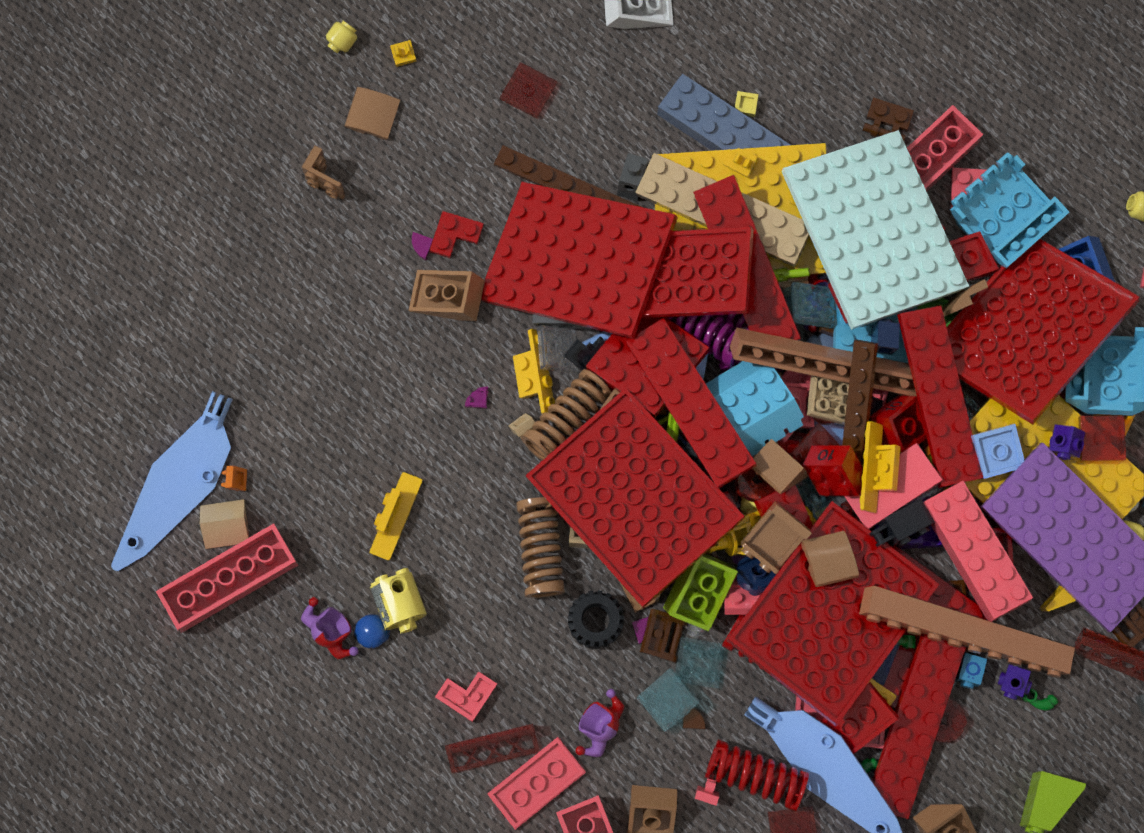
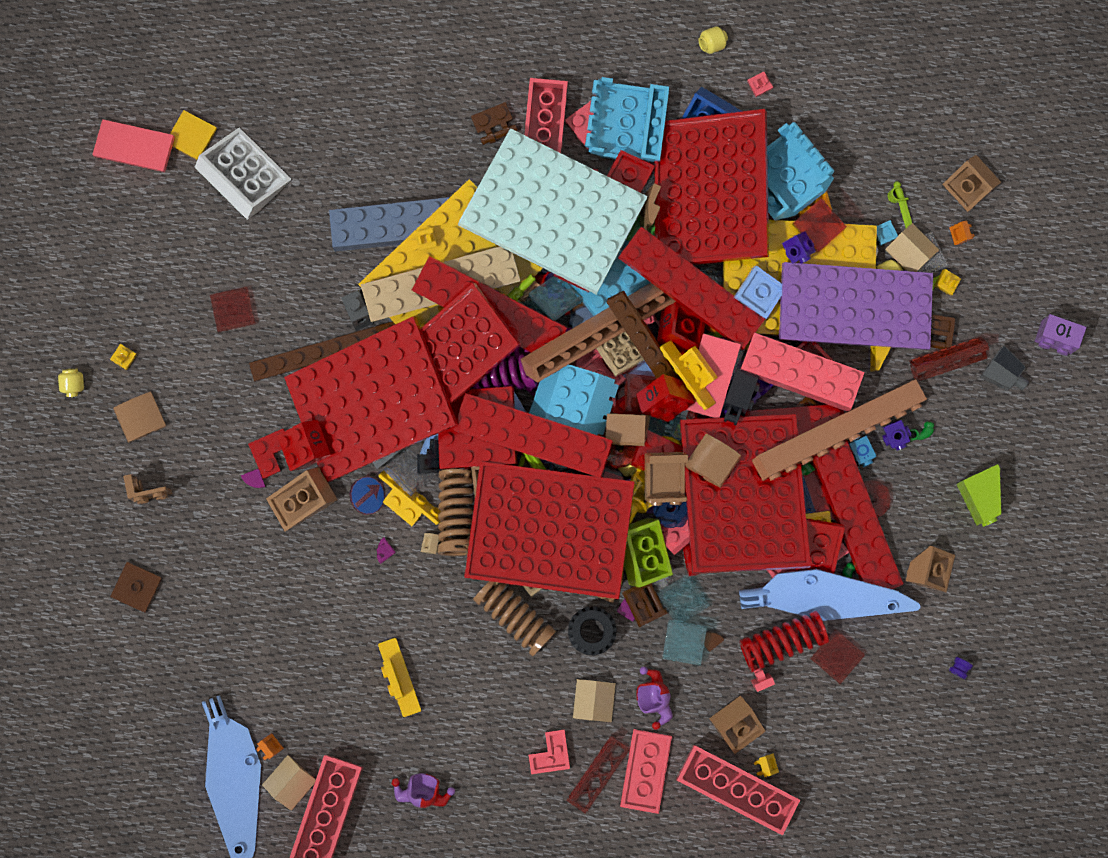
camera: 40 degrees left, 5 degrees up
(244, 250) = (136, 587): none -> reddish brown plate
(370, 631) = (451, 767): blue hair -> none
(401, 607) = (458, 735): light yellow cylinder -> none
(487, 249) = (303, 445): none -> red brick
(504, 338) = (367, 495): none -> blue piece
(545, 682) = (594, 700): none -> tan slope
(746, 103) = (389, 193): light yellow plate -> none
(886, 334) = (622, 278): dark blue brick -> none

